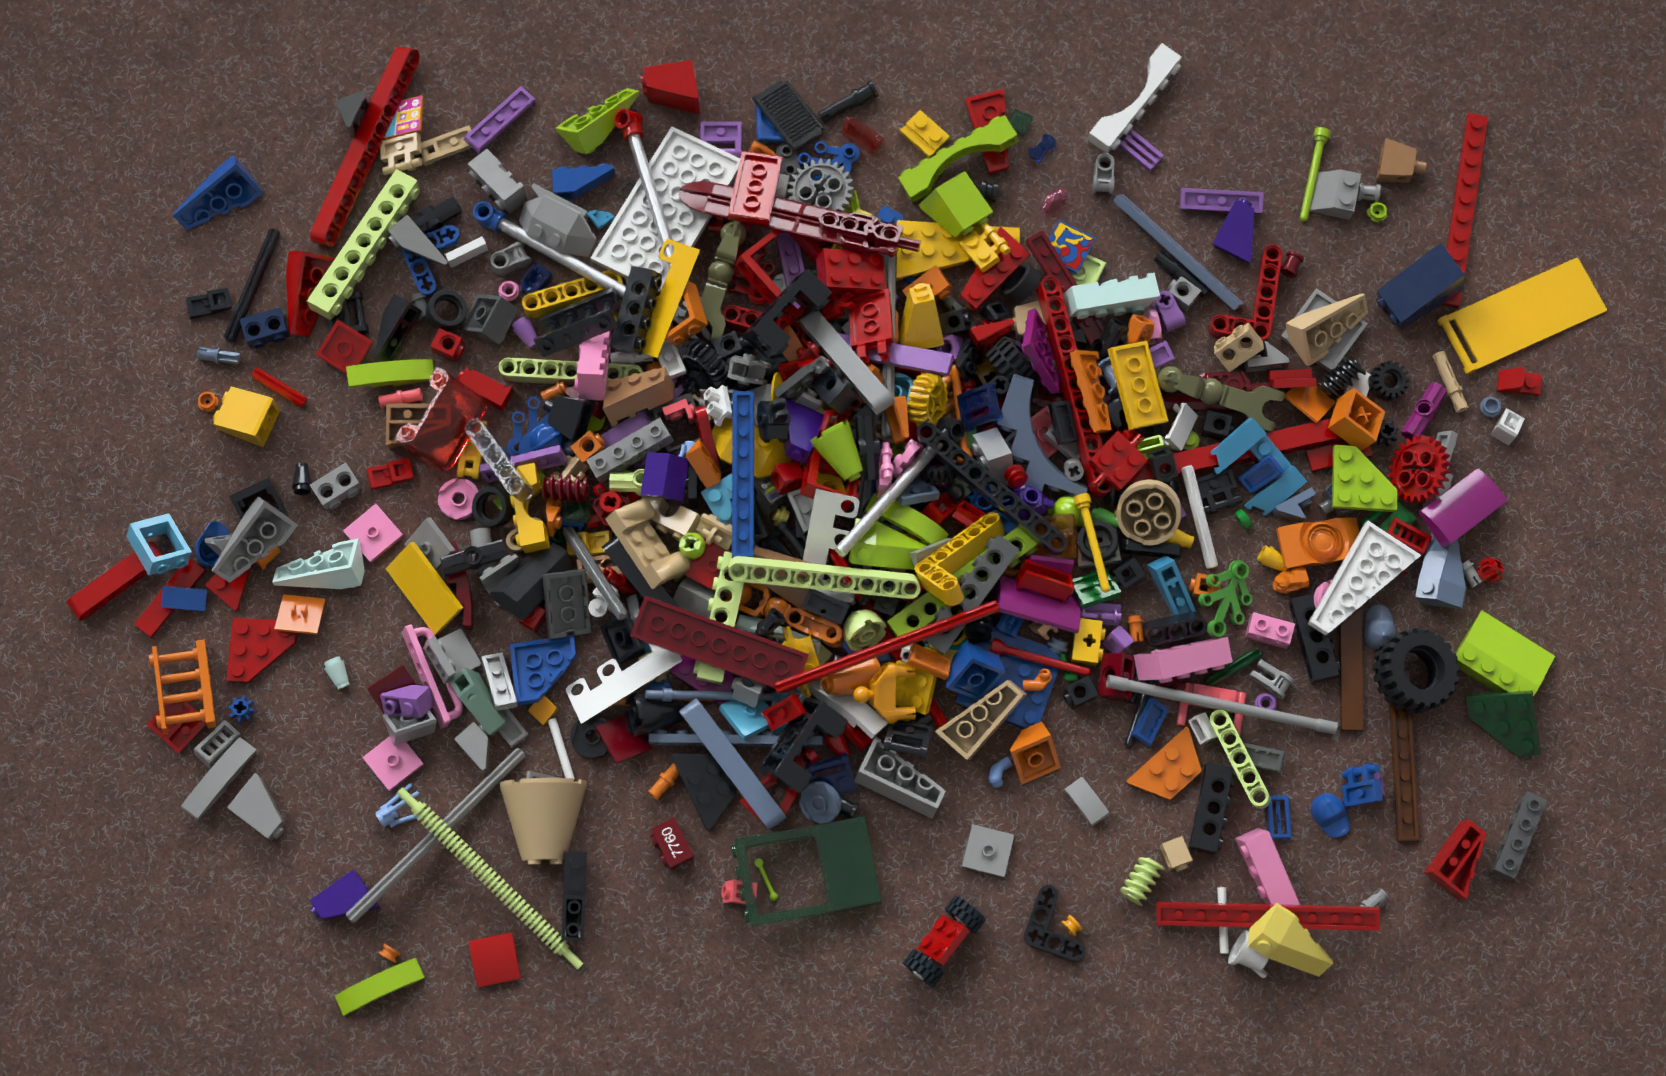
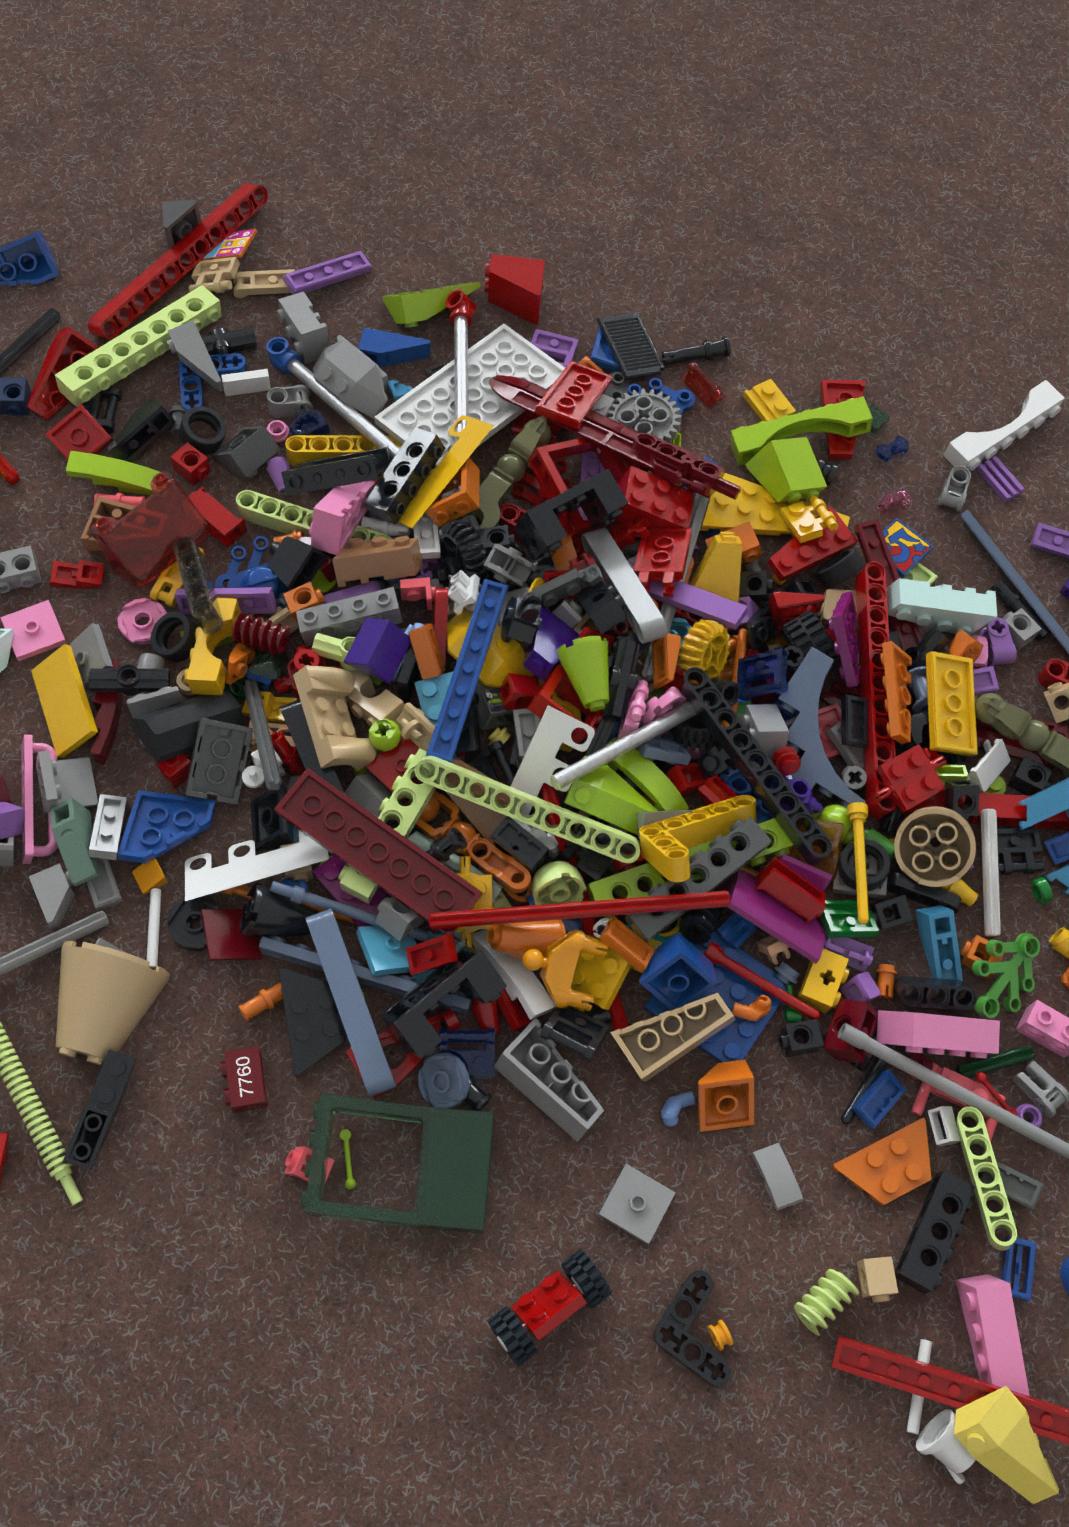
camera: 10 degrees right, 10 degrees down
(1223, 684) = (982, 1078): none -> red hinge

